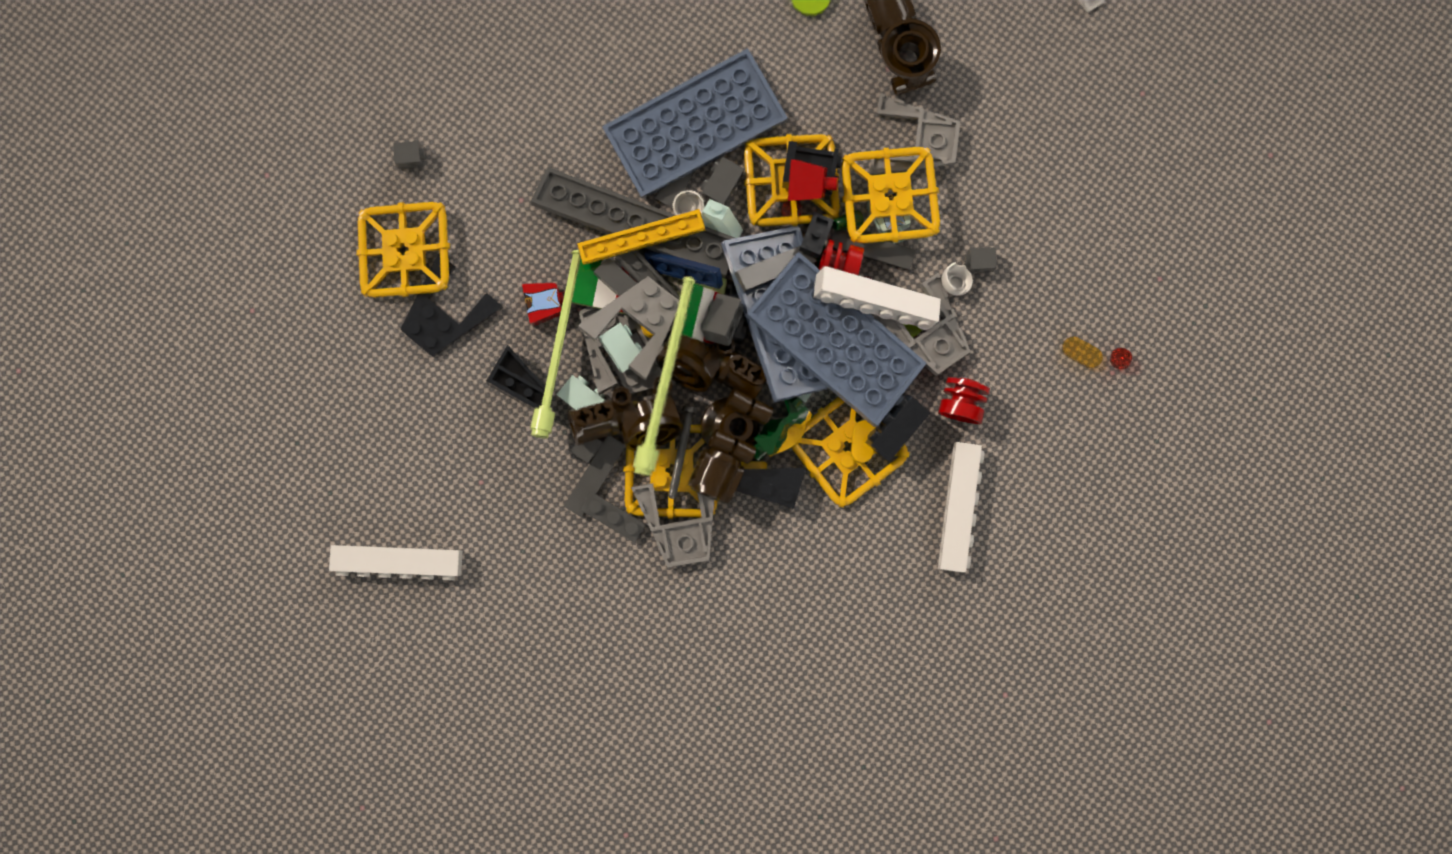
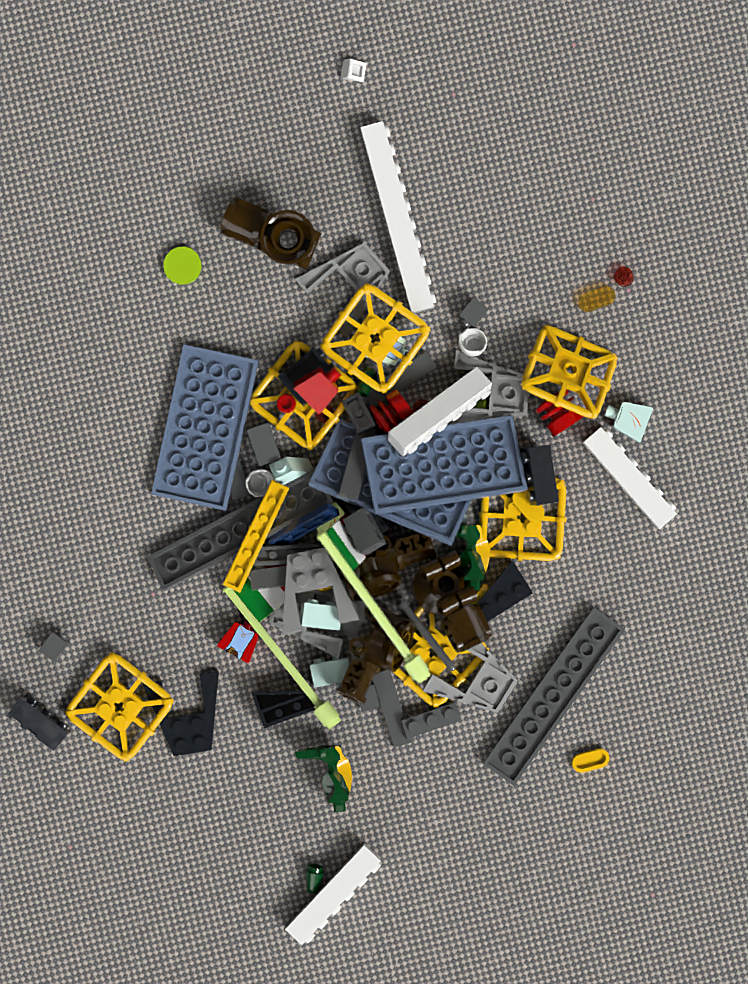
camera: 50 degrees left, 5 degrees up
(334, 194) = (39, 721): none -> black wedge
(396, 532) = (314, 875): none -> dark green cone
(500, 477) = (338, 777): none -> dark green hips
(694, 681) = (590, 760): none -> yellow tile
(721, 603) = (553, 696): none -> dark grey plate
(772, 170) = (286, 403): none -> red tile
(1000, 388) = (559, 375): none -> yellow plate
(1003, 131) = (397, 217): none -> white brick
(1008, 465) = (630, 419): none -> light aqua torso

